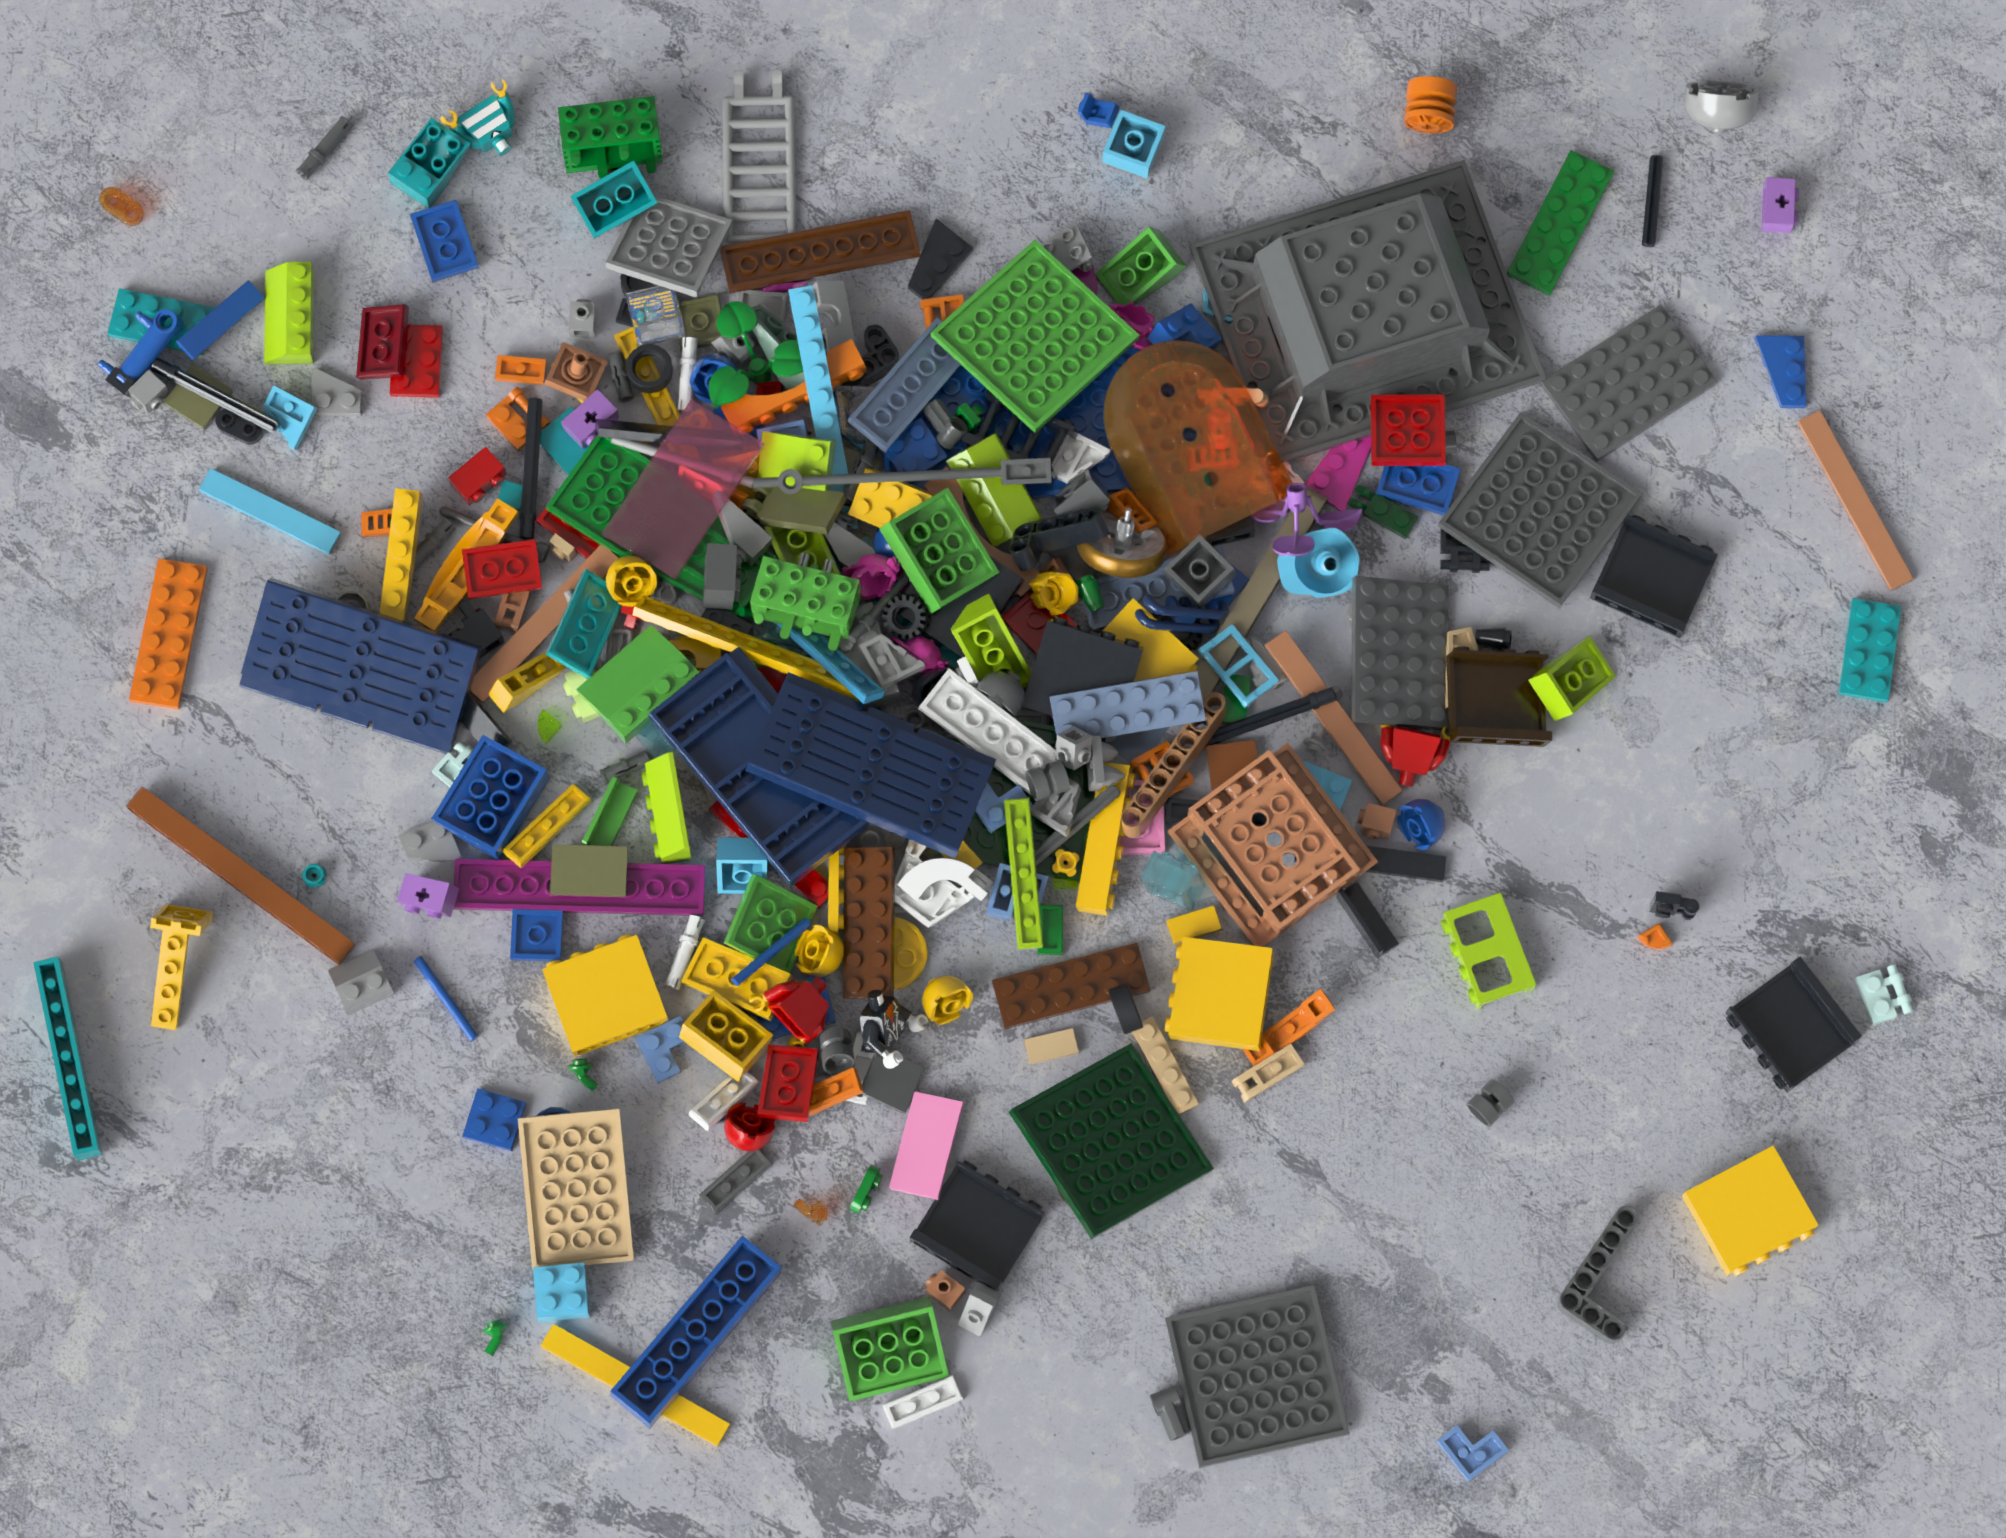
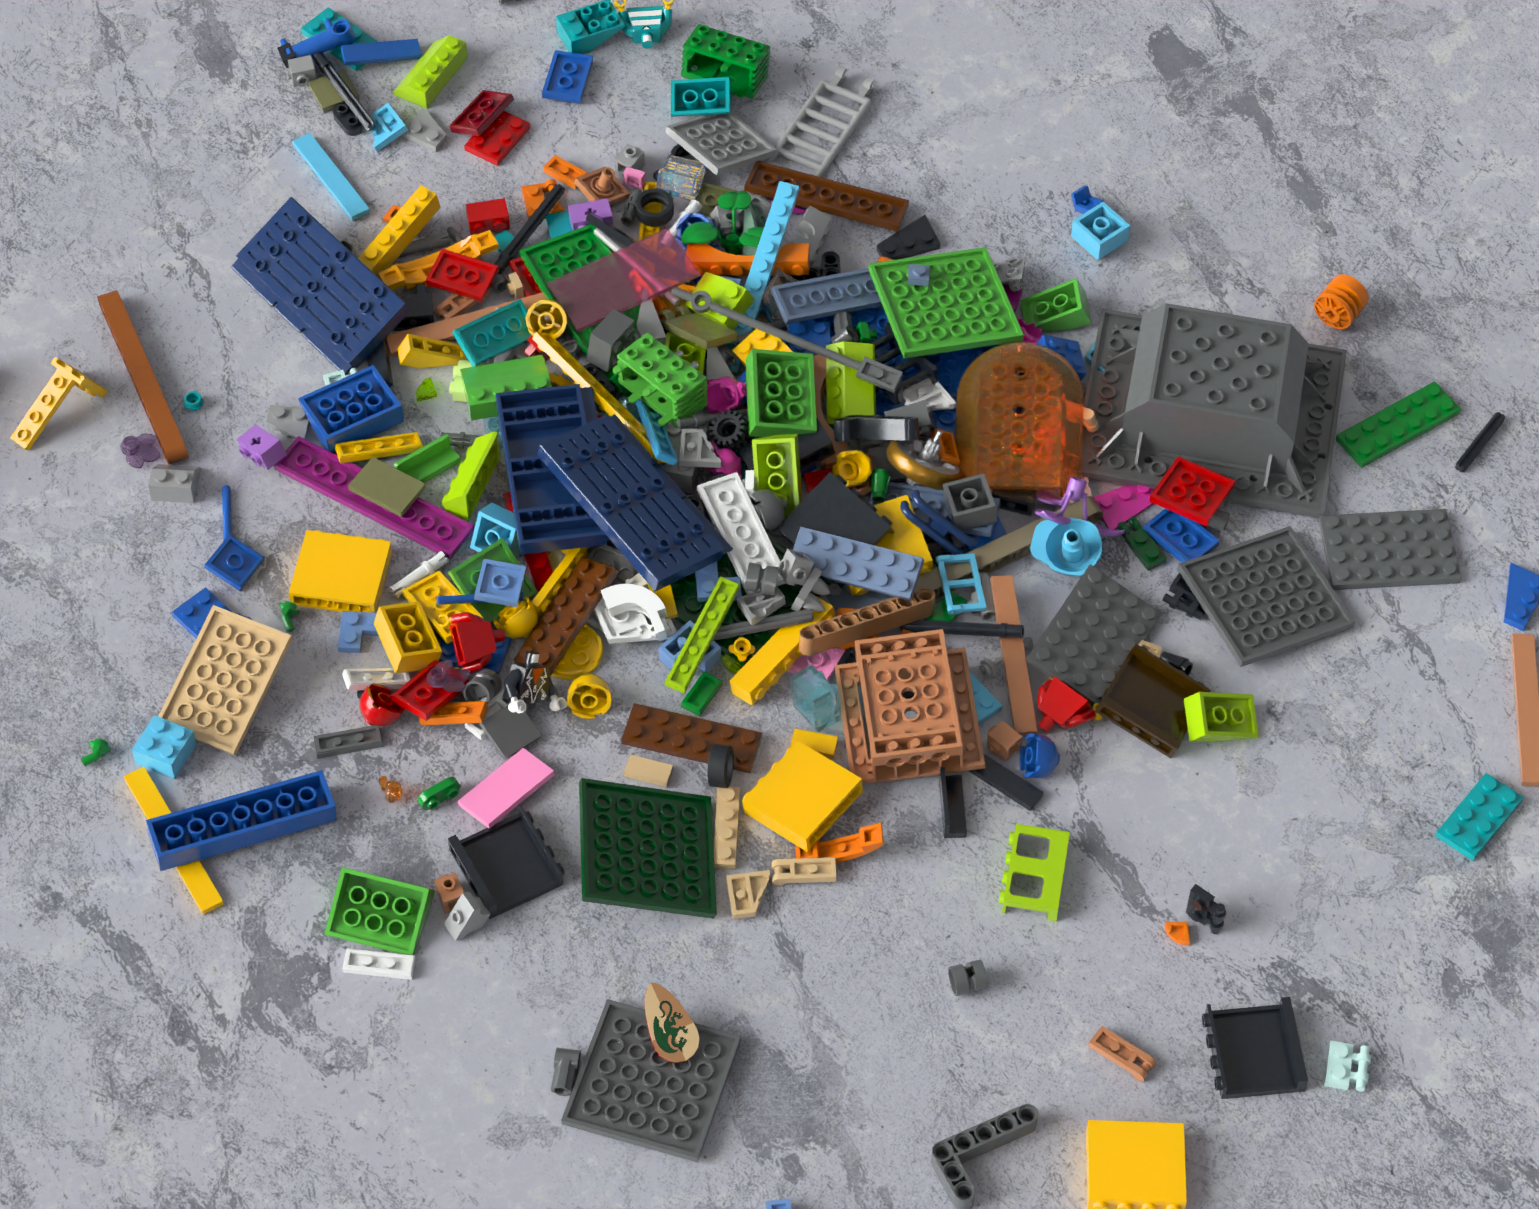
camera: 30 degrees right, 20 degrees down
(168, 634) = (206, 215): orange plate -> none
(302, 964) = (141, 449): none -> clear purple plate
(488, 1043) = (234, 562): none -> blue tile
(536, 935) = (320, 511): blue plate -> none
(601, 339) = (634, 178): none -> bright pink tile
(786, 927) = (500, 582): none -> medium blue plate
(801, 1059) = (447, 677): none -> clear purple plate
(991, 320) = (918, 275): none -> sand blue plate
(1227, 1128) = (746, 892): none -> tan wing
(1246, 1316) = (669, 1025): none -> shield
(1654, 575) = (1331, 683): black panel -> none
(1673, 1099) = (1122, 1053): none -> nougat plate

